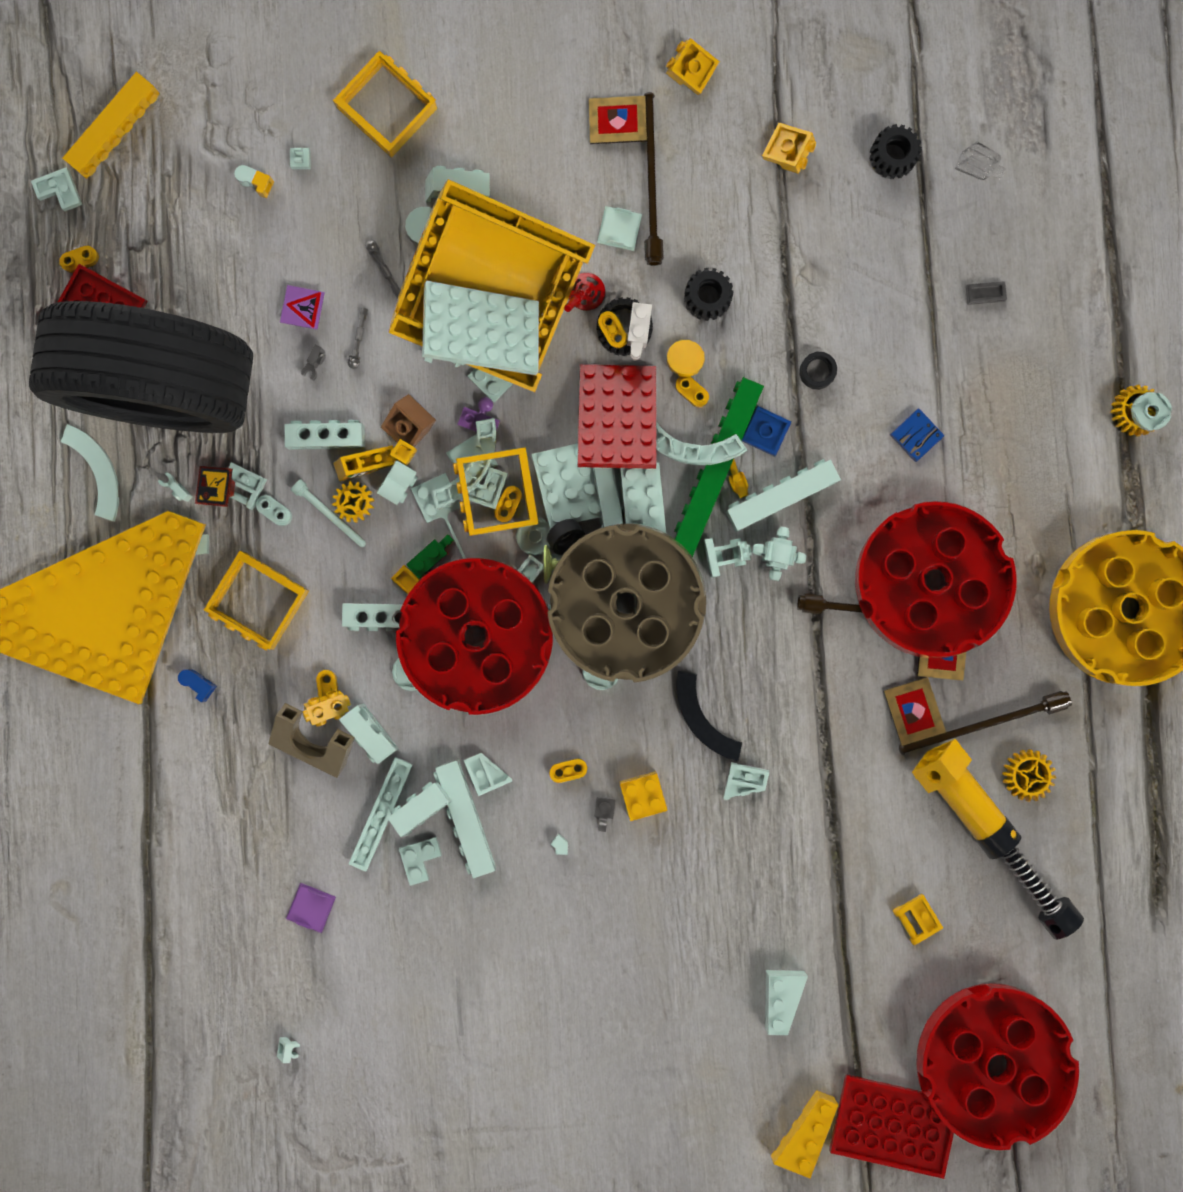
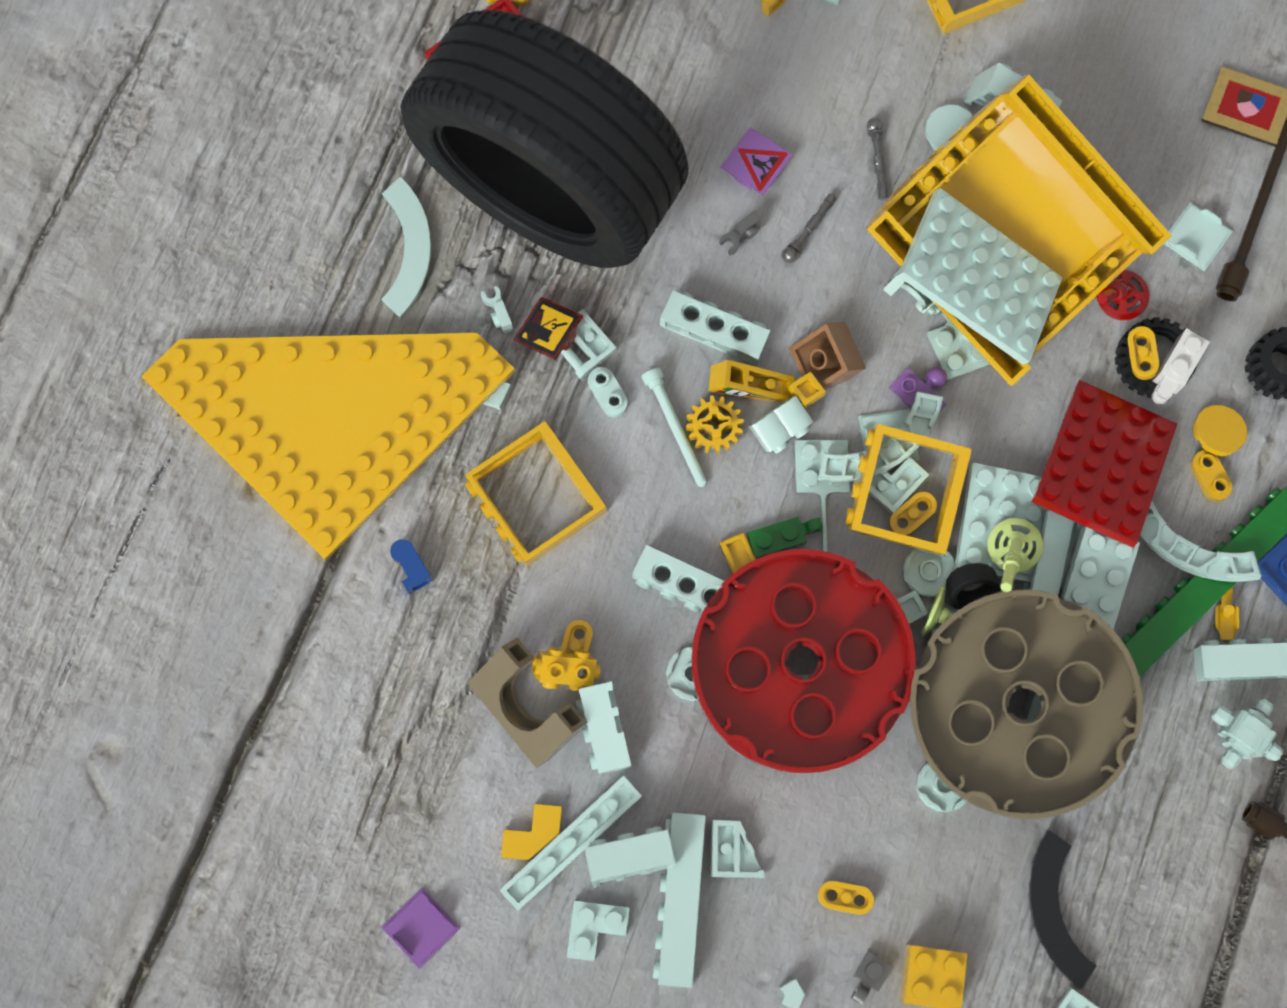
camera: 25 degrees right, 10 degrees down
(360, 812) = (525, 844): none -> yellow tile
(577, 508) = (1015, 559): none -> yellowish green dish
(741, 552) = (1194, 710): light aqua tile -> none

